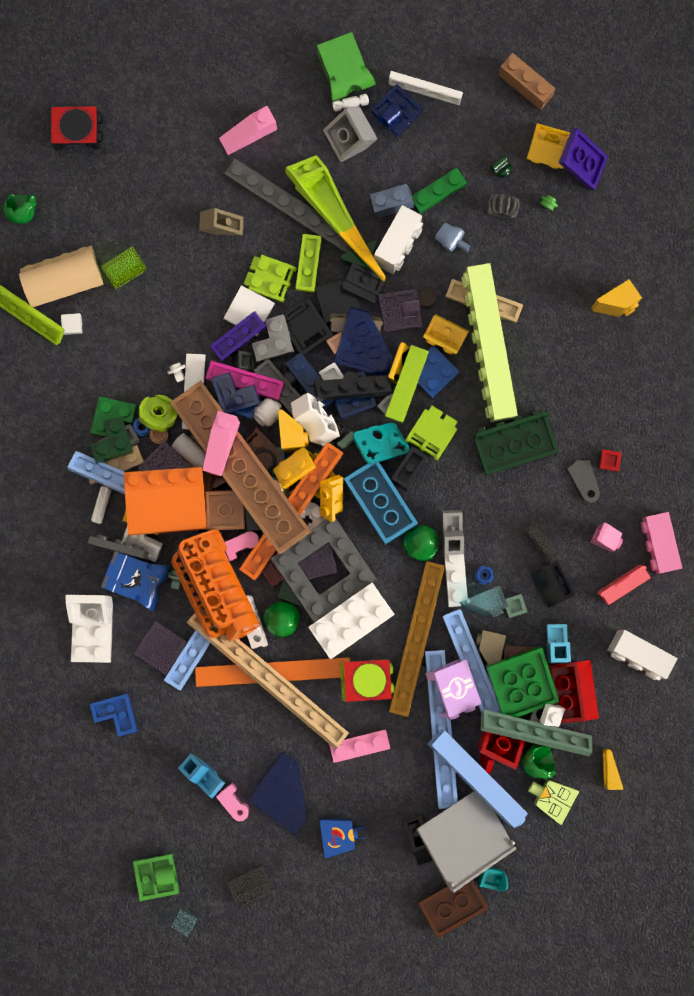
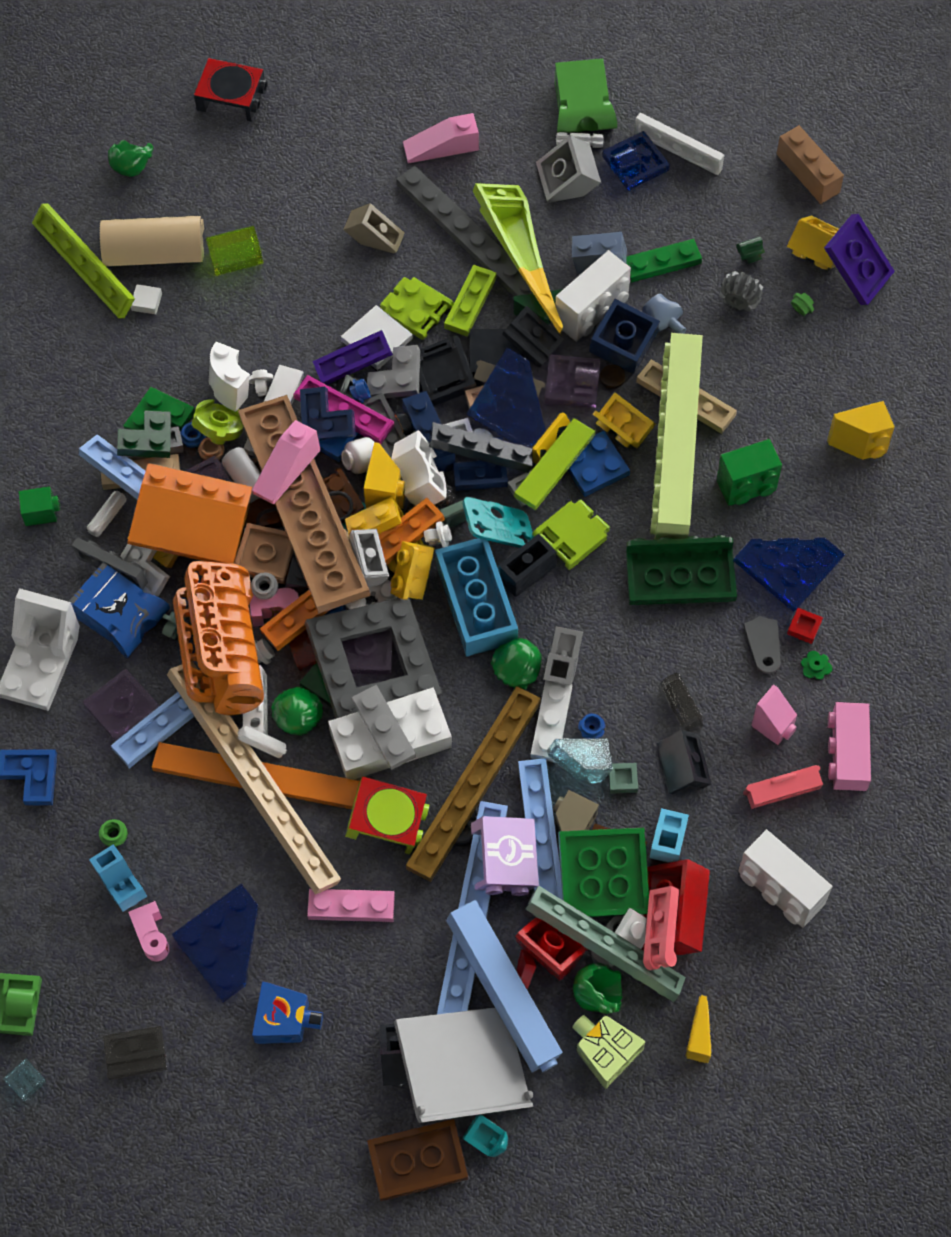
camera: 15 degrees right, 20 degrees down
(51, 513) = (38, 506): none -> green brick
(152, 378) = (227, 378): none -> white brick
(181, 744) = (108, 827): none -> bright green plate
(230, 543) = (263, 578): none -> light grey plate
(245, 581) = (264, 651): none -> light grey plate
(251, 361) = (360, 390): none -> blue plate
(266, 650) = (262, 741): none -> white axle
(301, 500) = (369, 556): none -> light grey brick
(345, 465) = (437, 536): none -> white plate
(348, 624) = (383, 727): none -> light grey plate
(429, 266) = (624, 336): none -> dark blue brick
(545, 355) = (749, 472): none -> green brick
(571, 714) = (661, 928): none -> coral plate
(589, 418) = (789, 566): none -> clear blue plate
(618, 486) = (818, 671): none -> green plant

